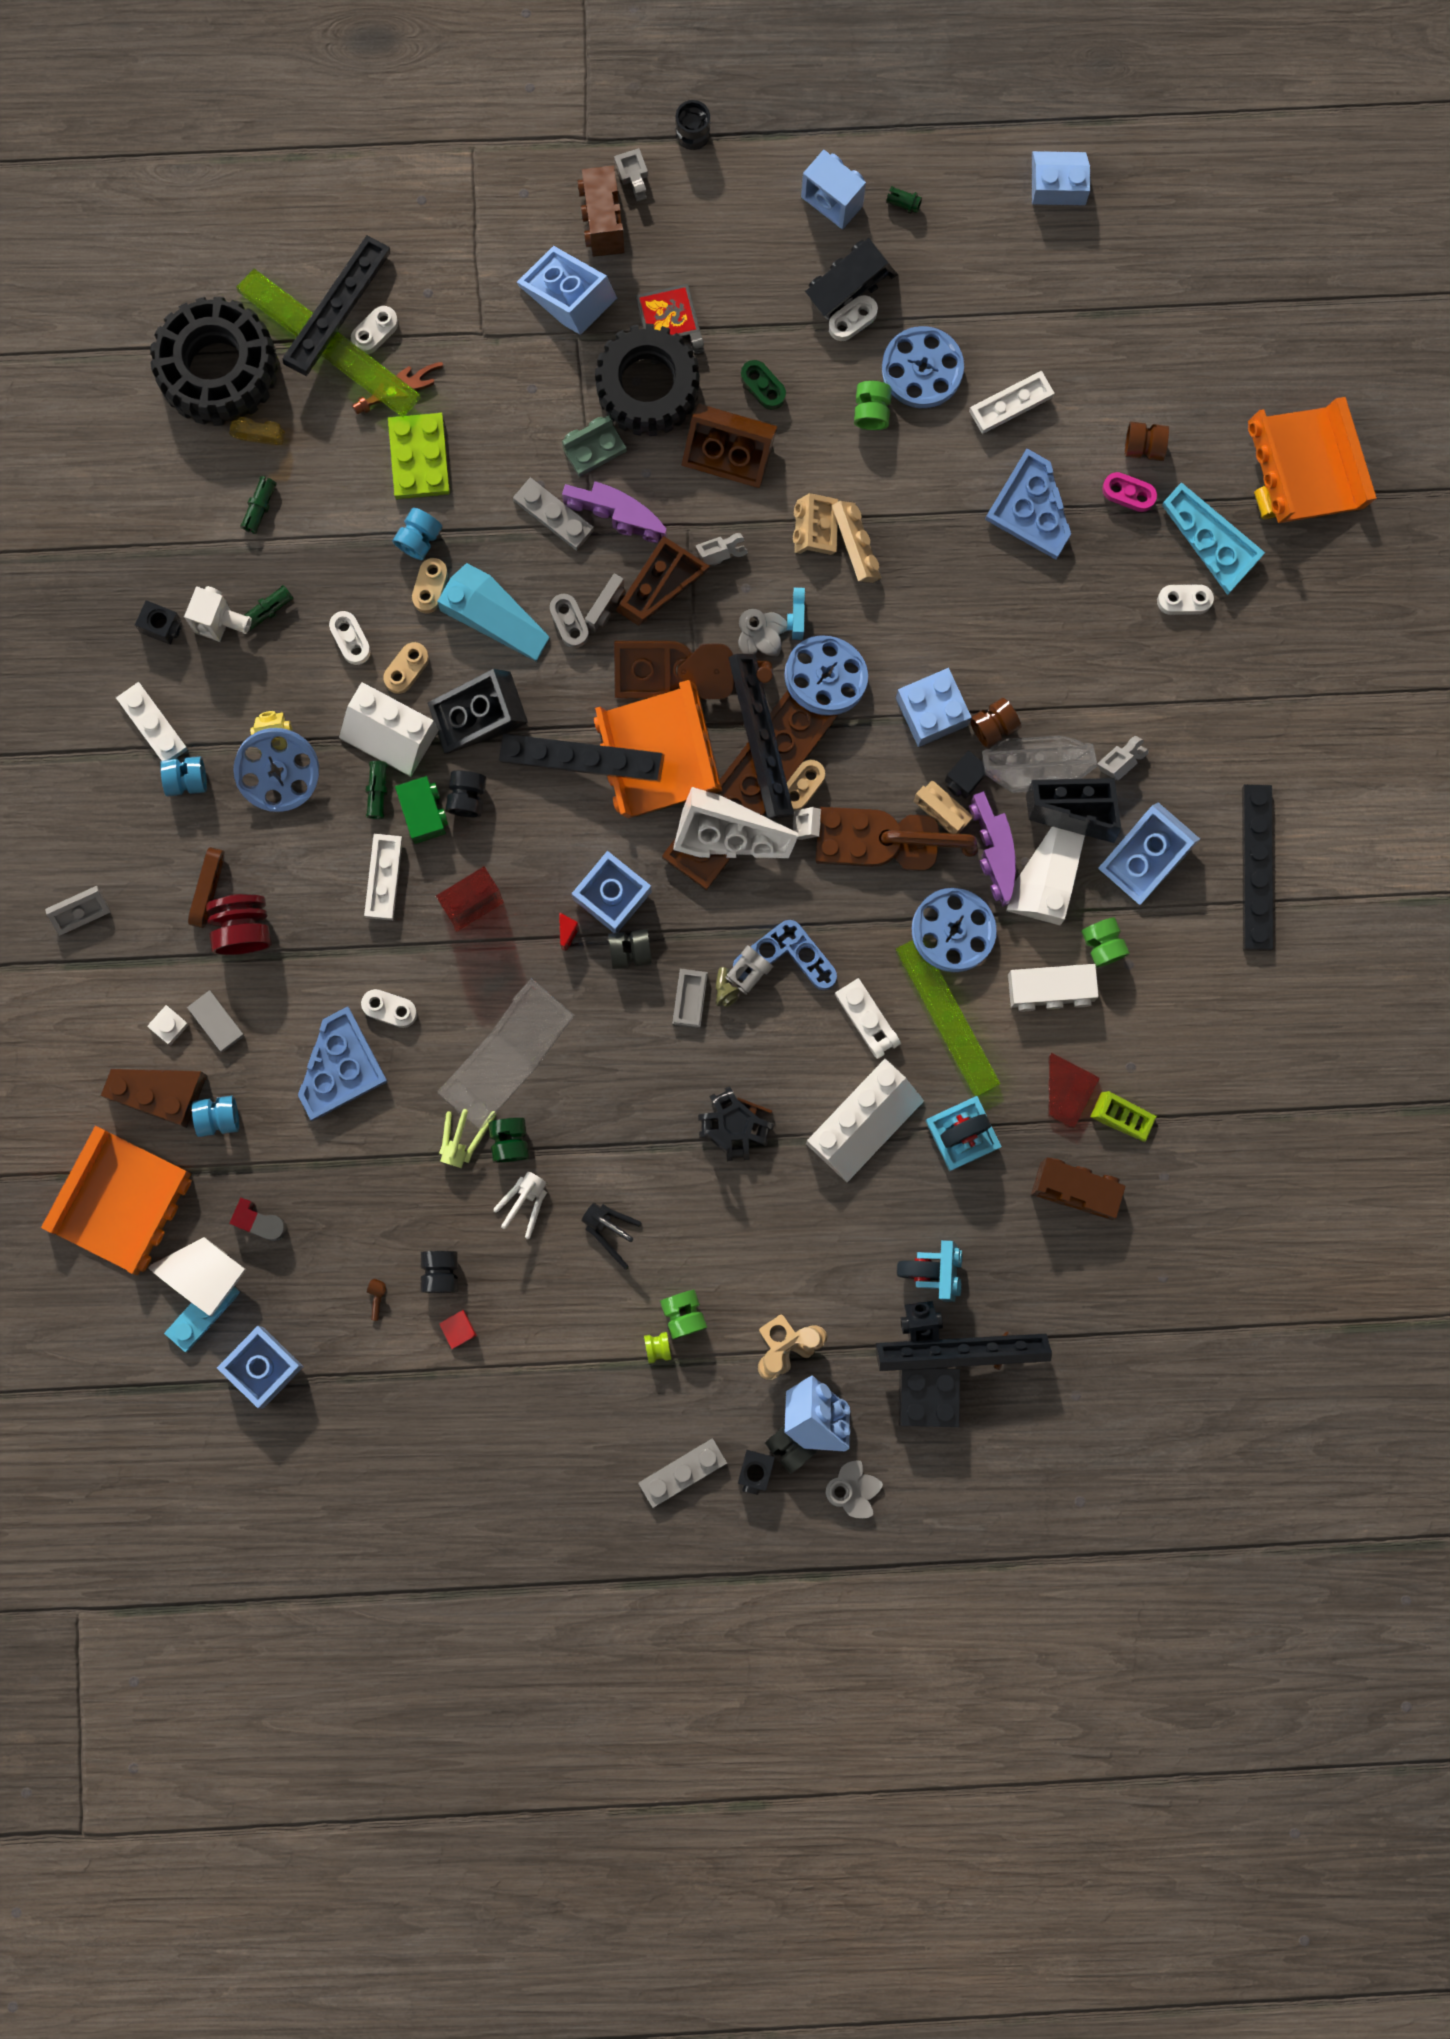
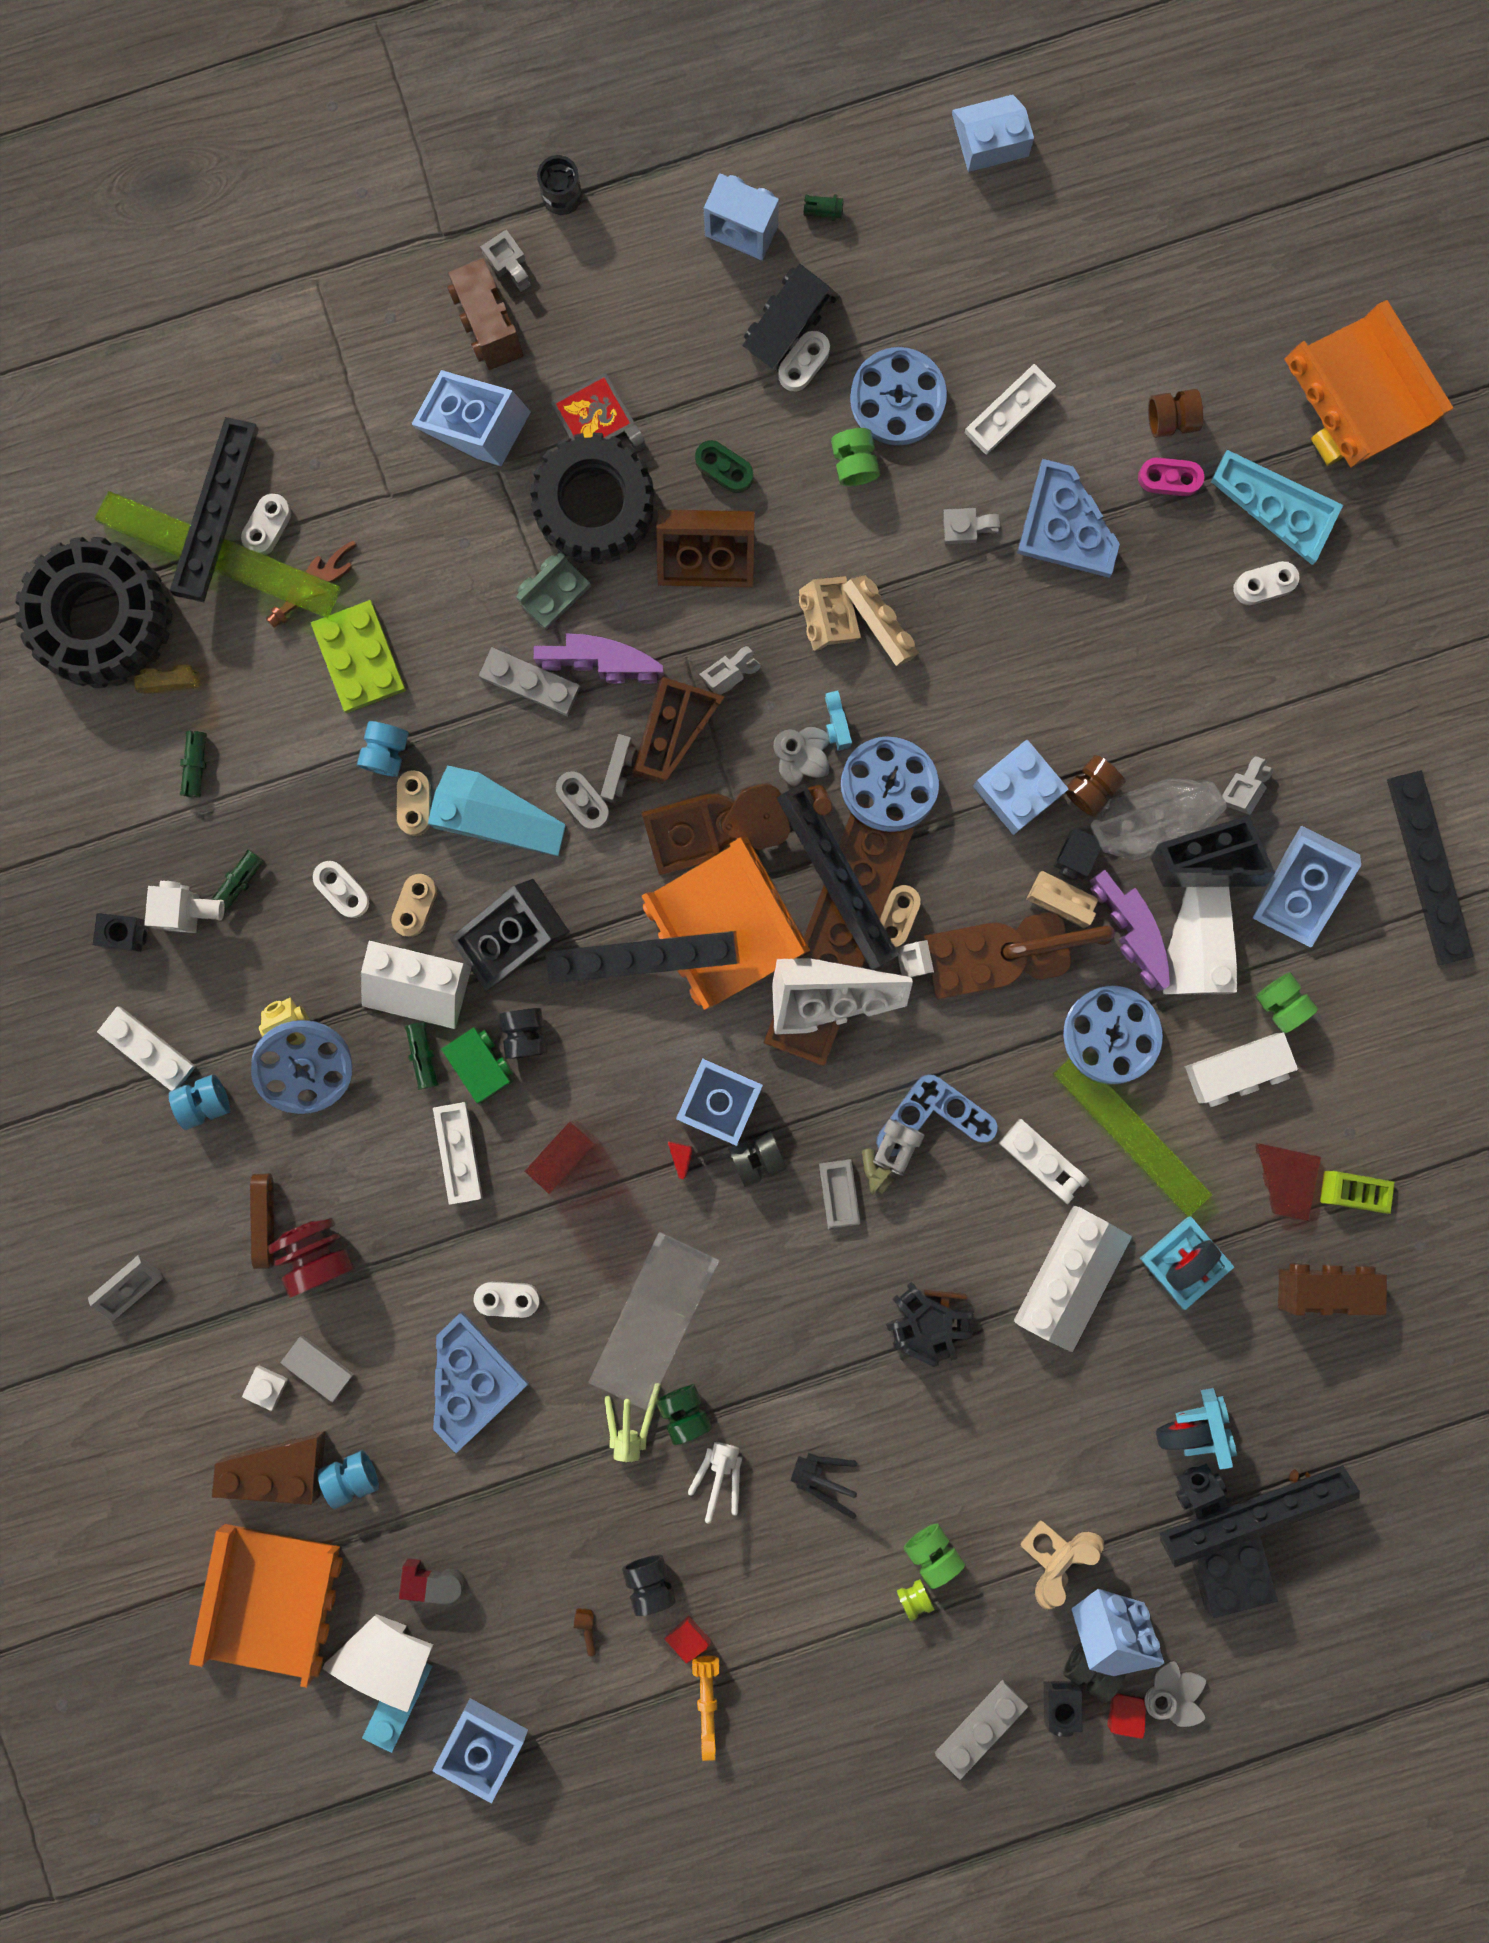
camera: 10 degrees left, 5 degrees up
(459, 1385) = (706, 1668): none -> light orange piece
(808, 1494) = (1127, 1716): none -> red slope
(947, 485) = (963, 525): none -> light grey plate

